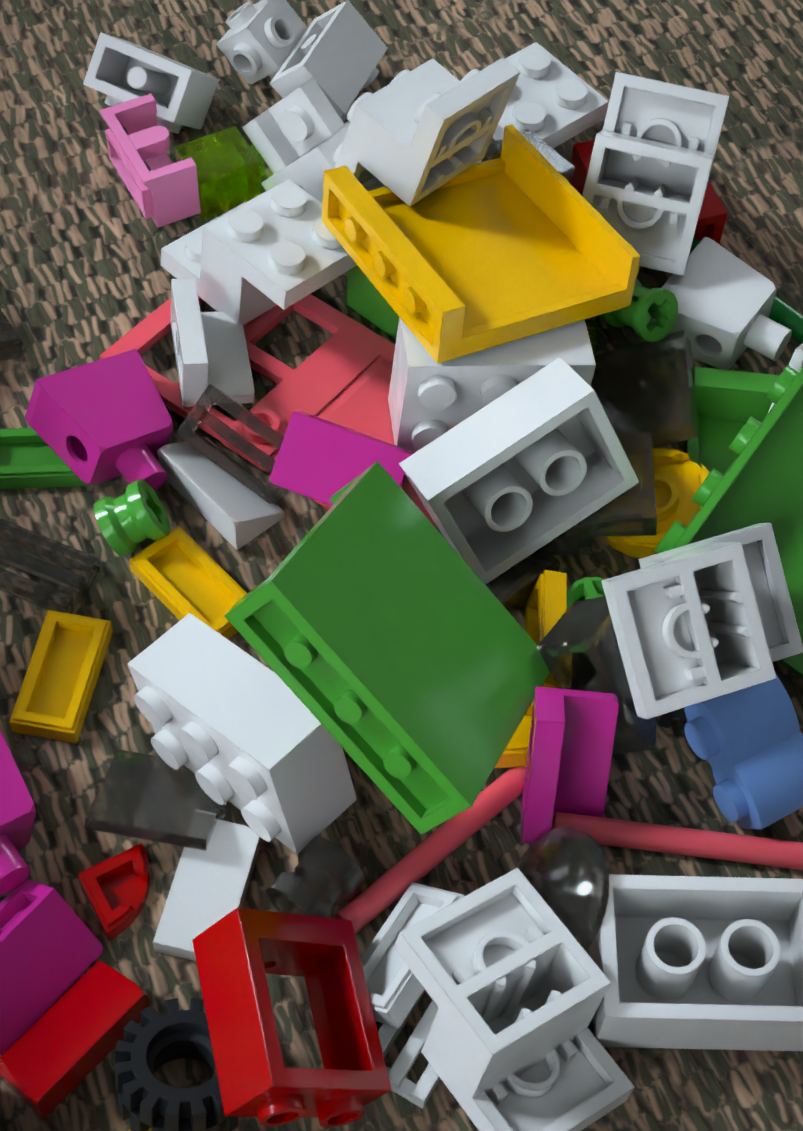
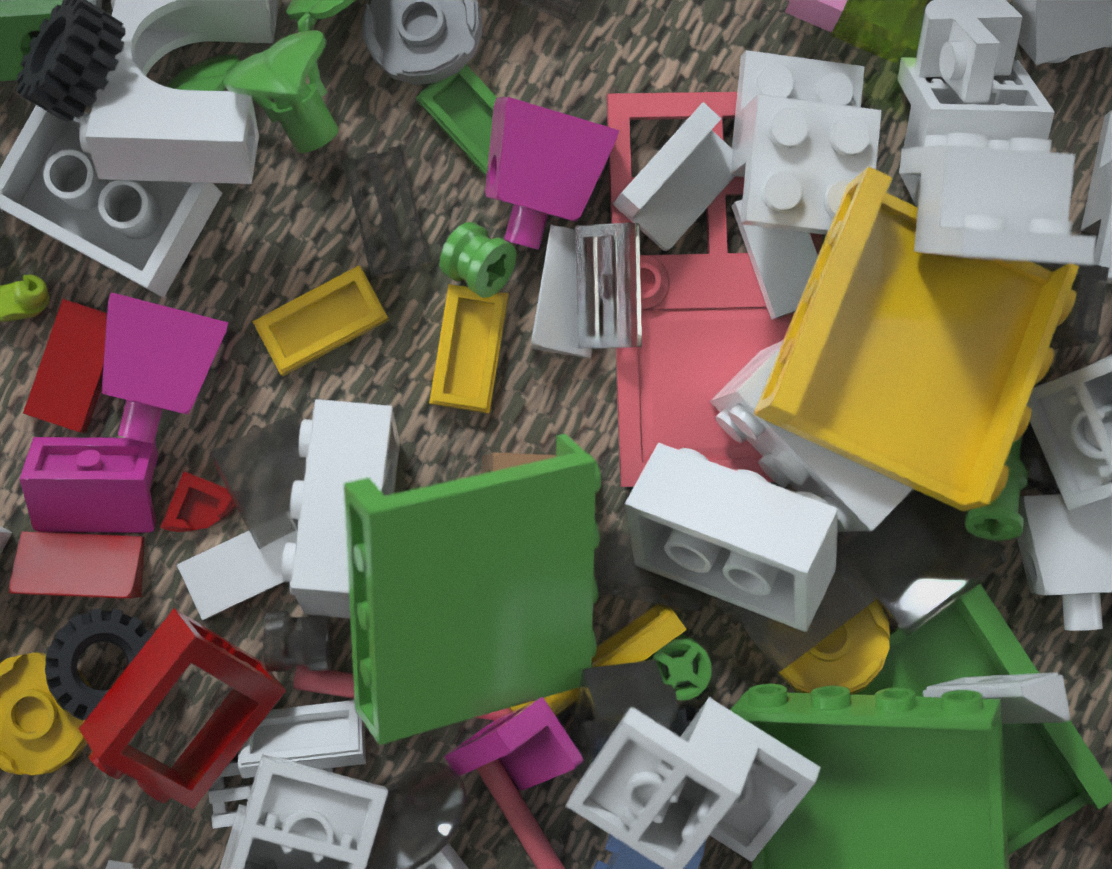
camera: 55 degrees right, 30 degrees up
(324, 457) = (650, 381): dark pink panel -> none
(328, 334) = (780, 263): none -> white tile

